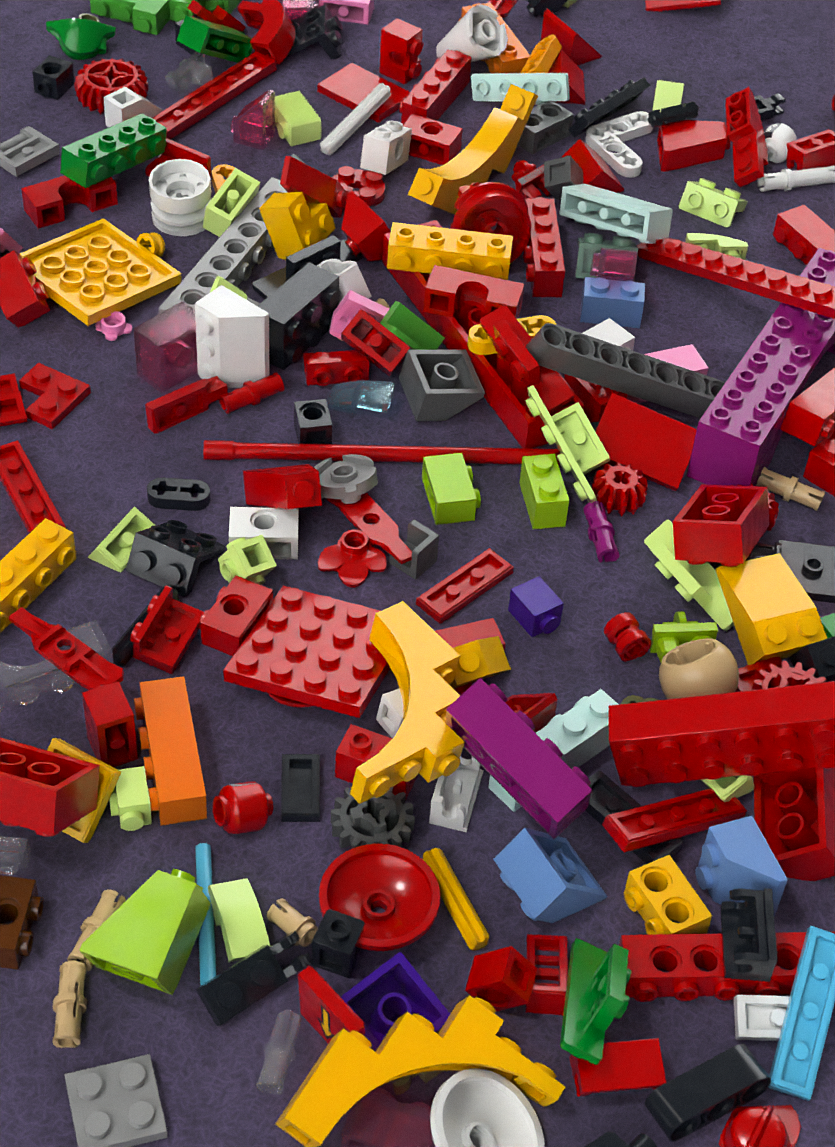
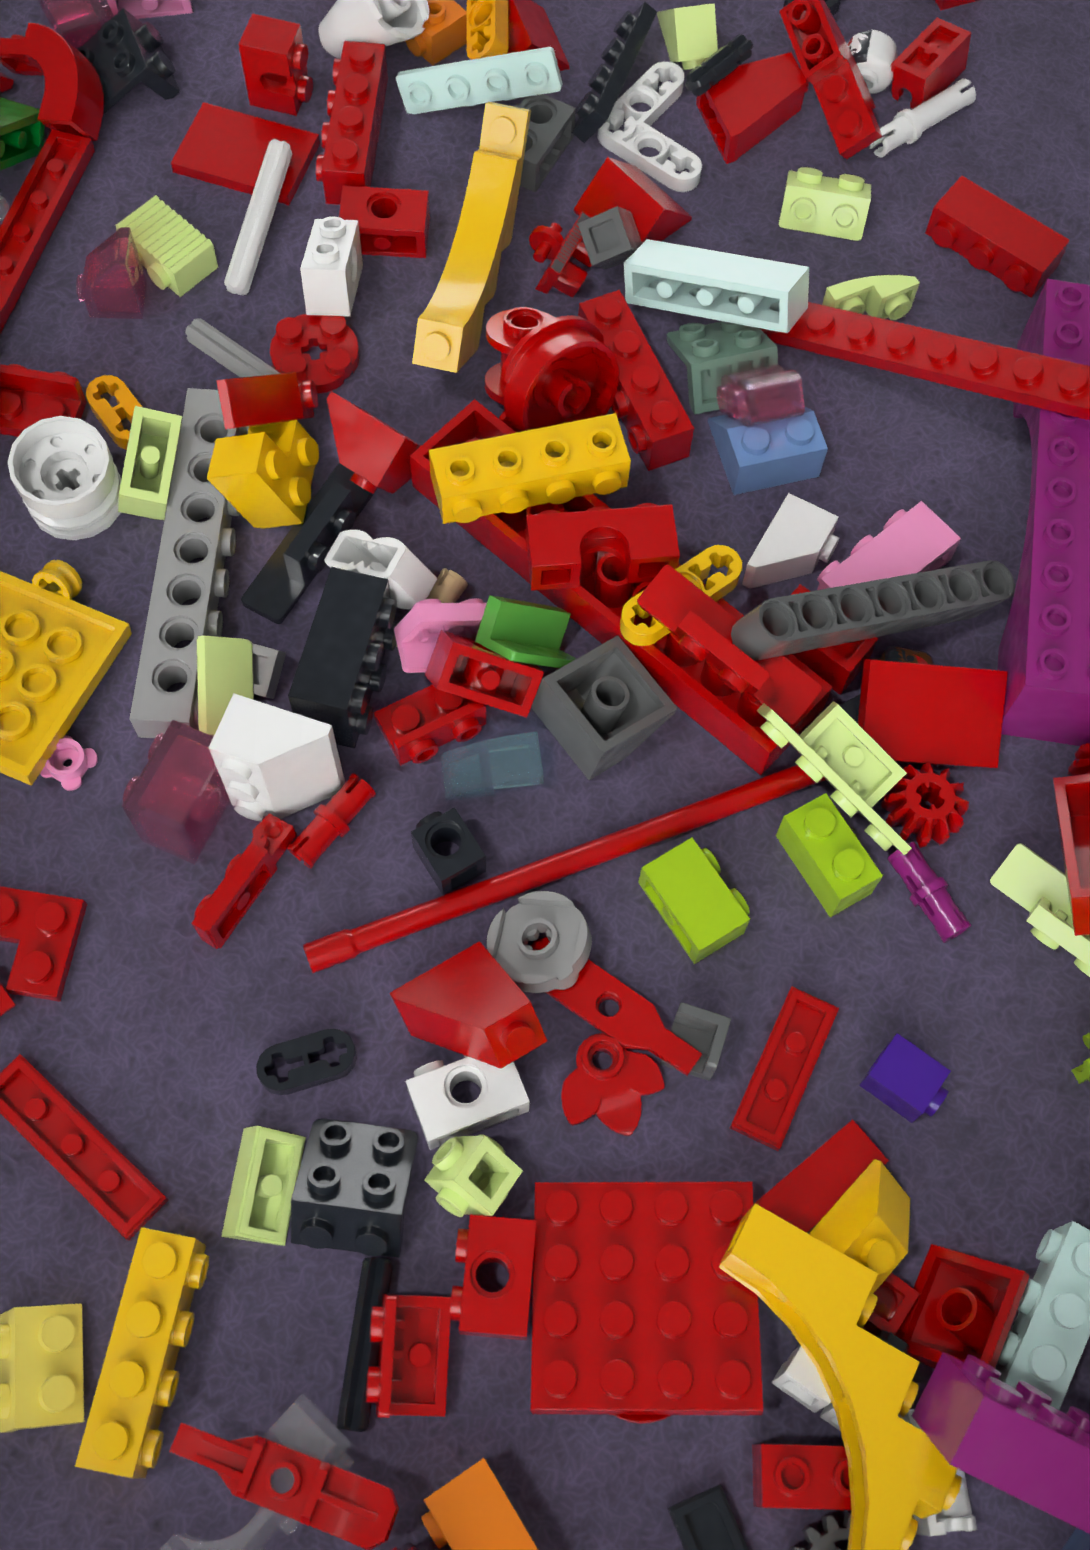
camera: 20 degrees left, 20 degrees up
(625, 634) = (1057, 1090): red wheel -> none

